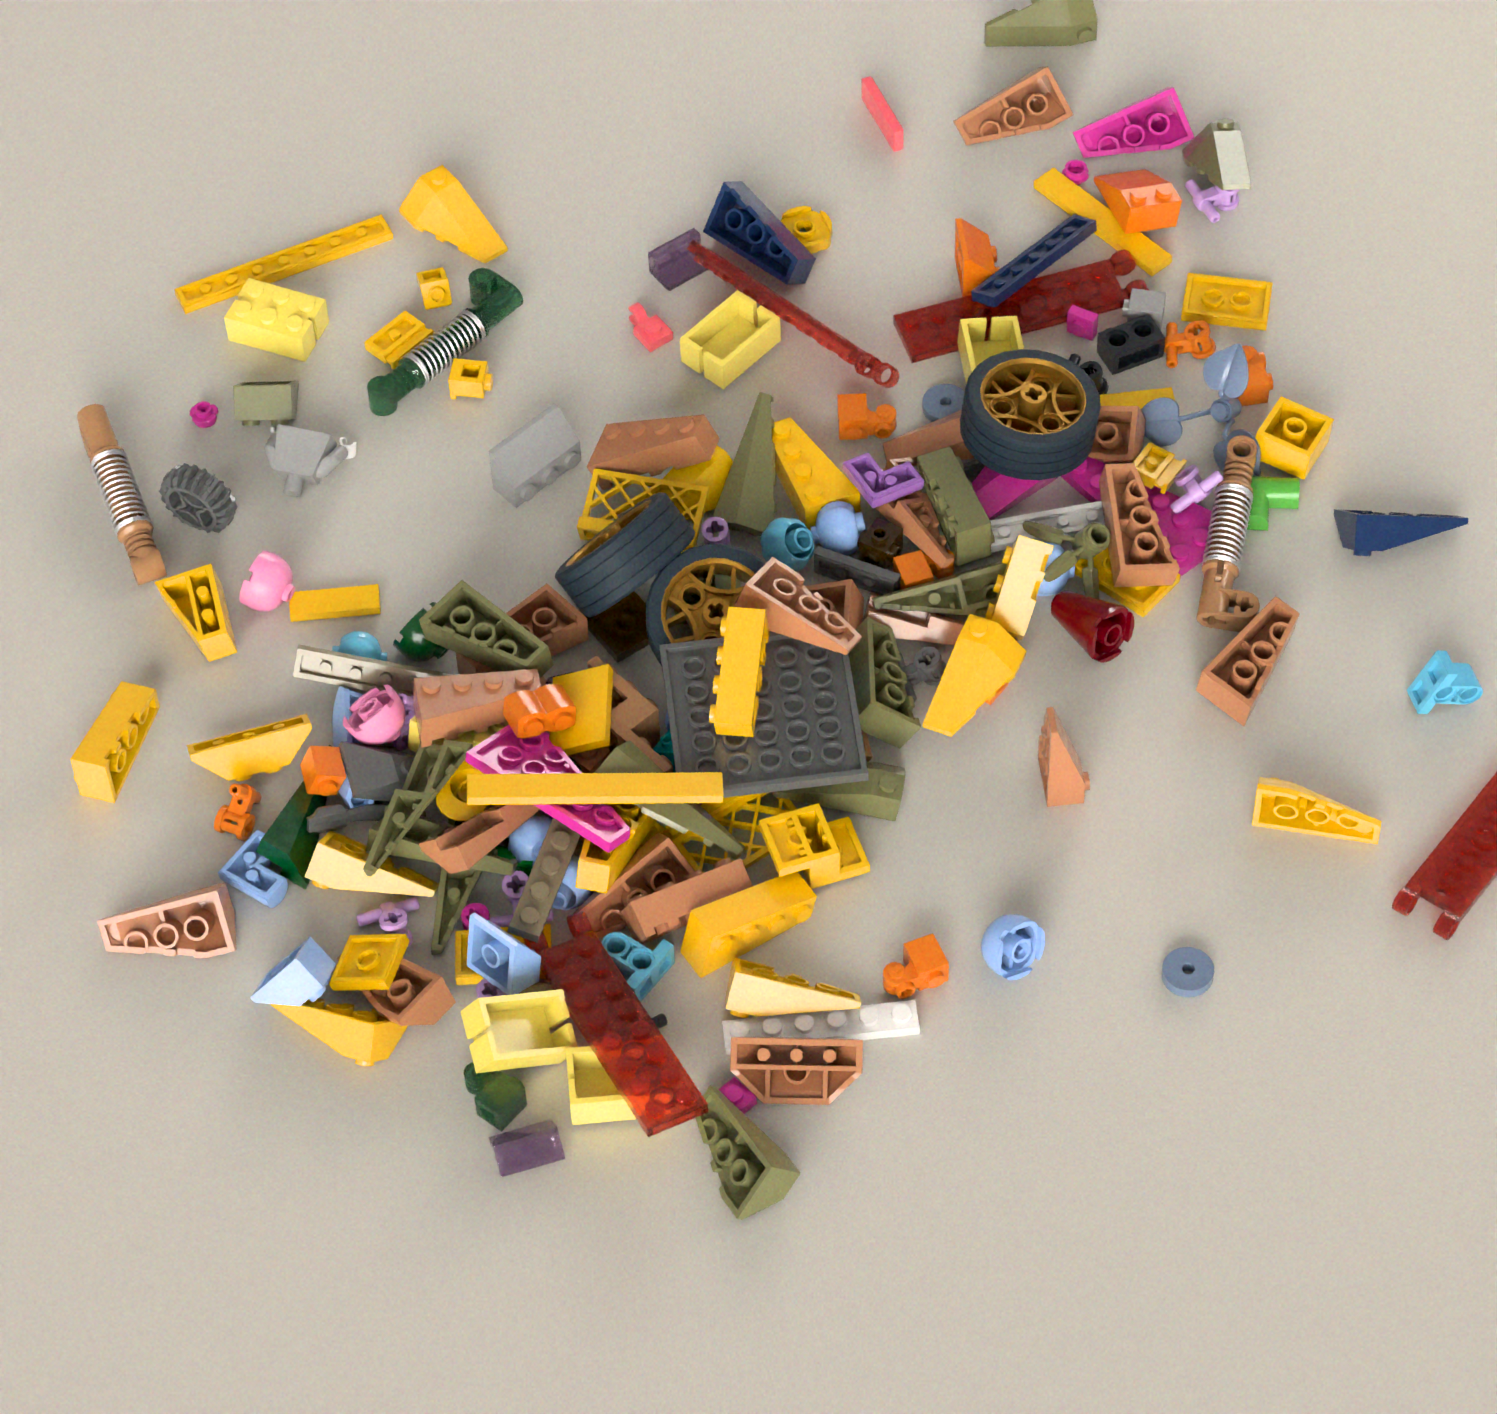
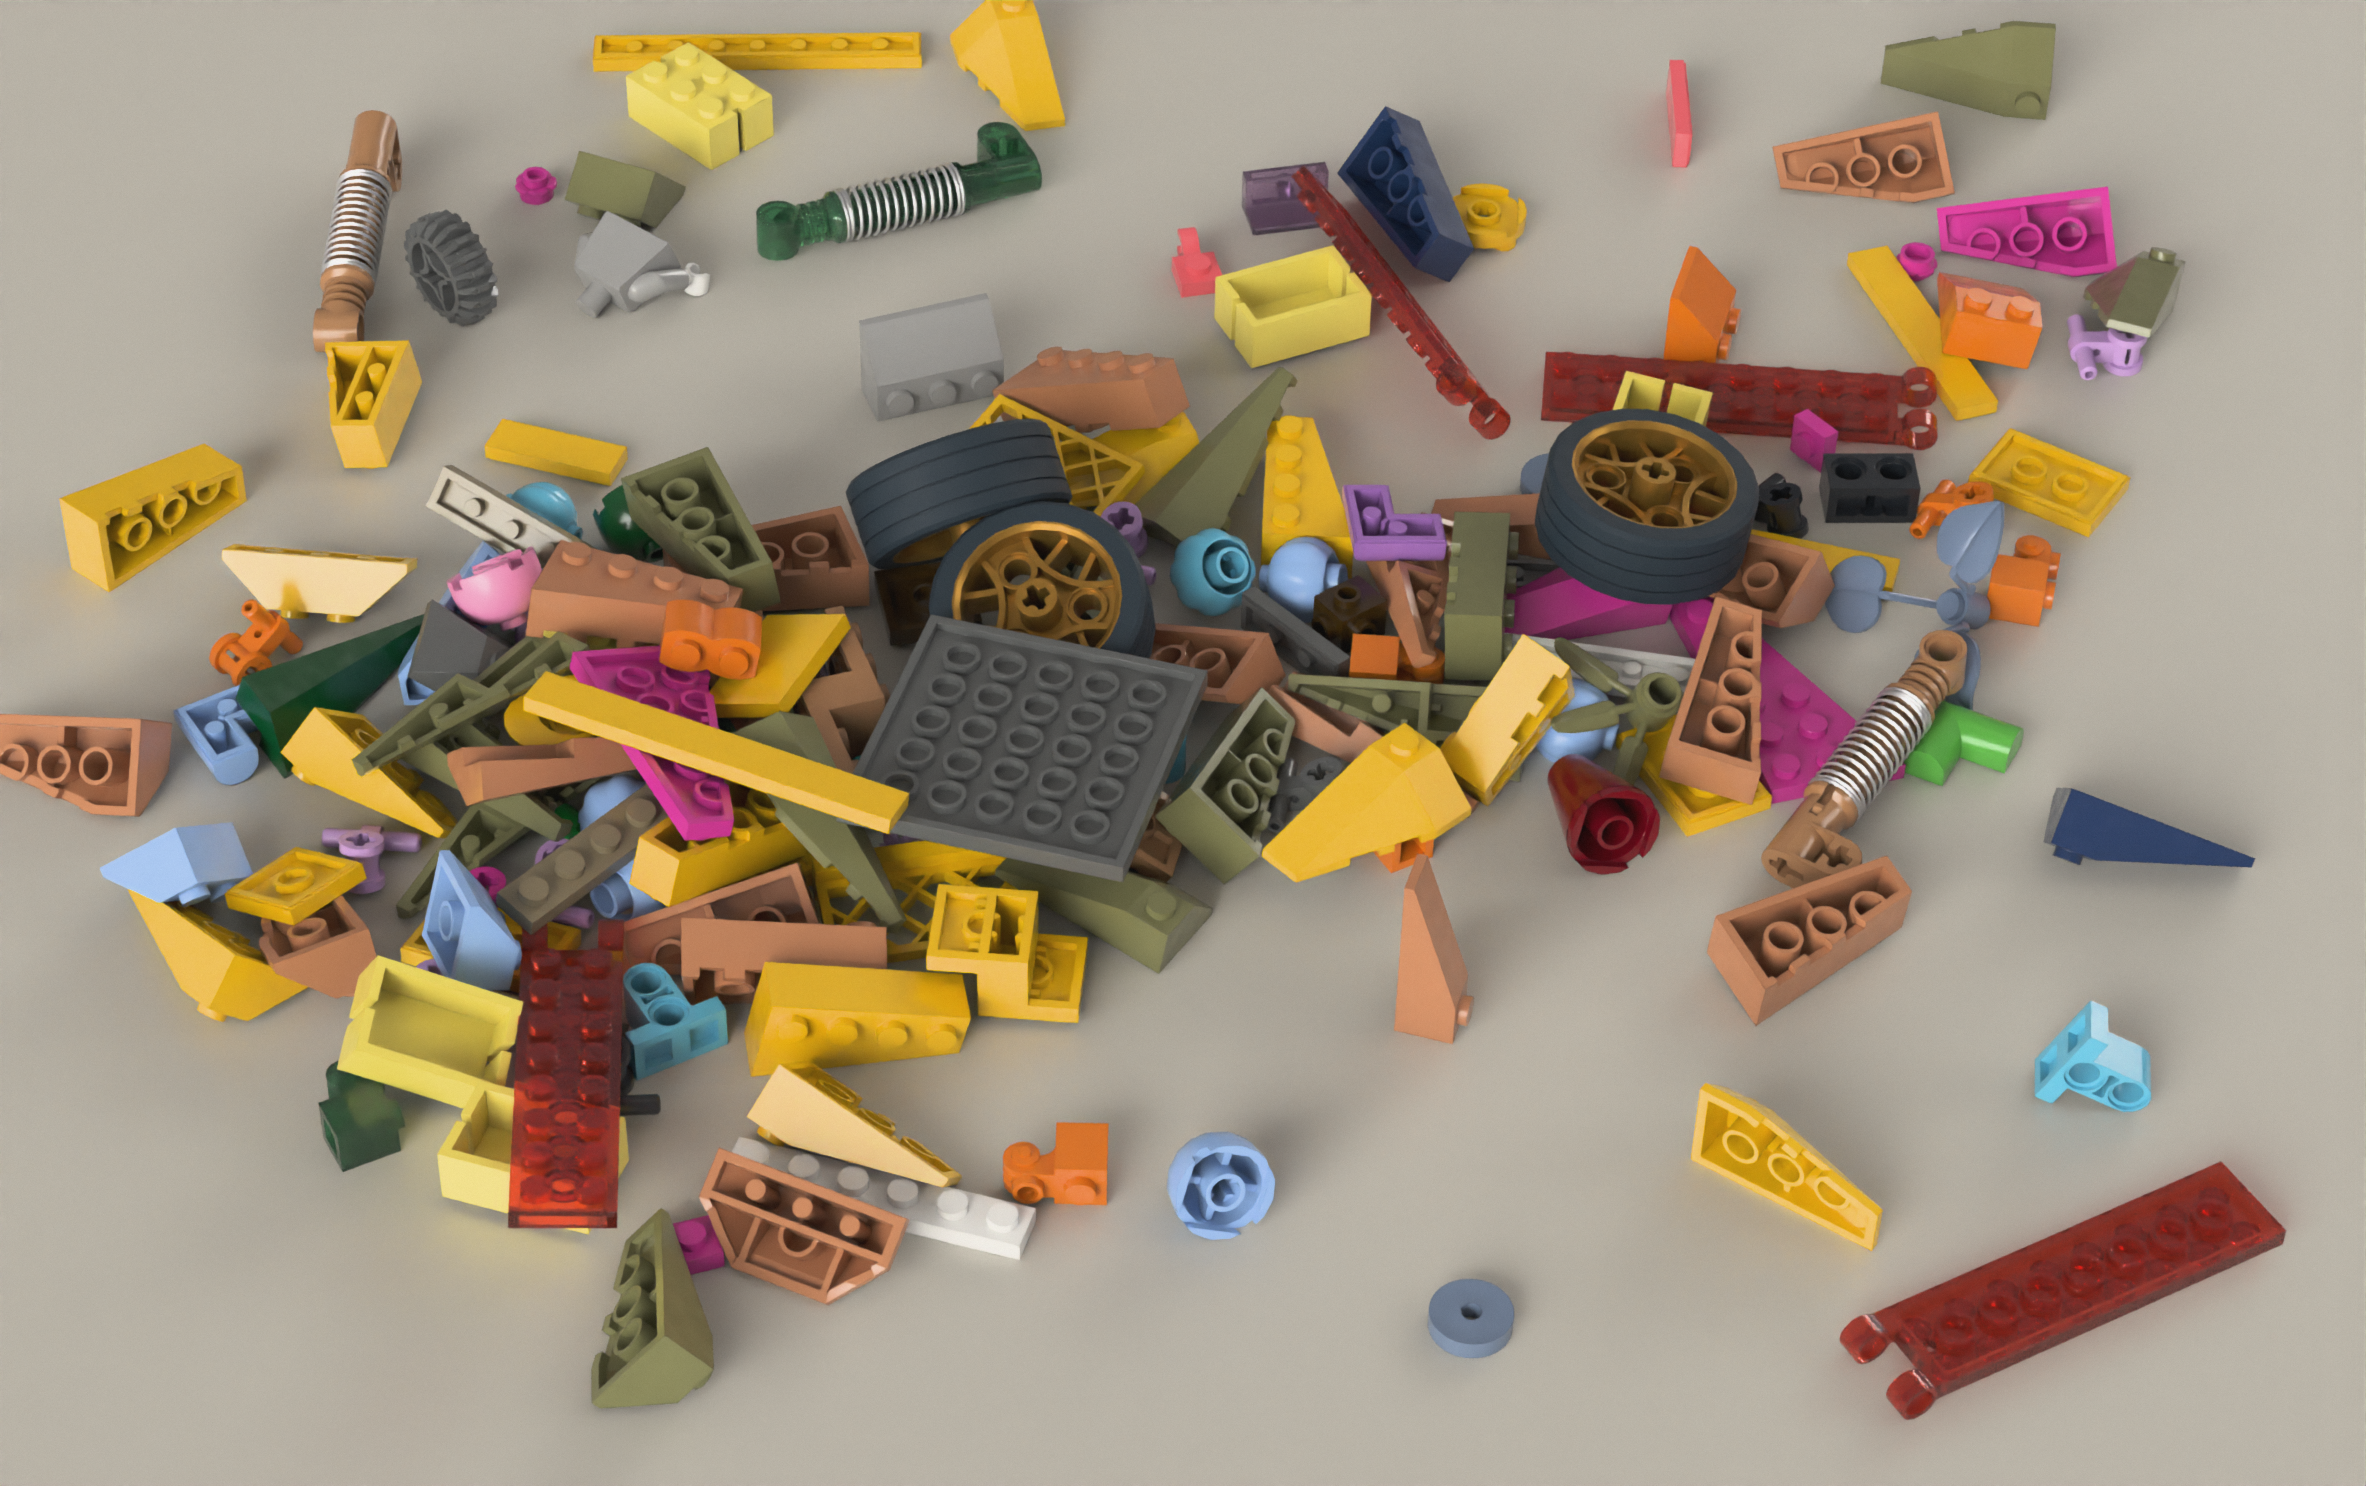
camera: 20 degrees right, 10 degrees down
(268, 584) = (473, 392): bright pink cylinder -> none
(323, 770) = (389, 630): orange brick -> none
(337, 817) = (368, 696): dark grey piece -> none
(397, 338) = (843, 170): yellow plate -> none
(434, 288) = (932, 135): yellow bracket -> none
(469, 378) = (908, 247): yellow brick -> none
(527, 1147) = (356, 1202): clear purple panel -> none
(740, 675) = (1012, 671): yellow wedge -> none
(795, 610) = (1132, 614): nougat wedge -> none
(858, 422) = (1413, 458): orange brick -> none
(1033, 260) = (1784, 341): dark blue plate -> none
(1144, 303) = (1928, 443): light grey brick -> none
(1158, 467) = (1813, 648): yellow plate -> none
(1194, 486) = (1852, 688): lavender piece -> none
(1293, 437) = (2042, 672): yellow brick -> none

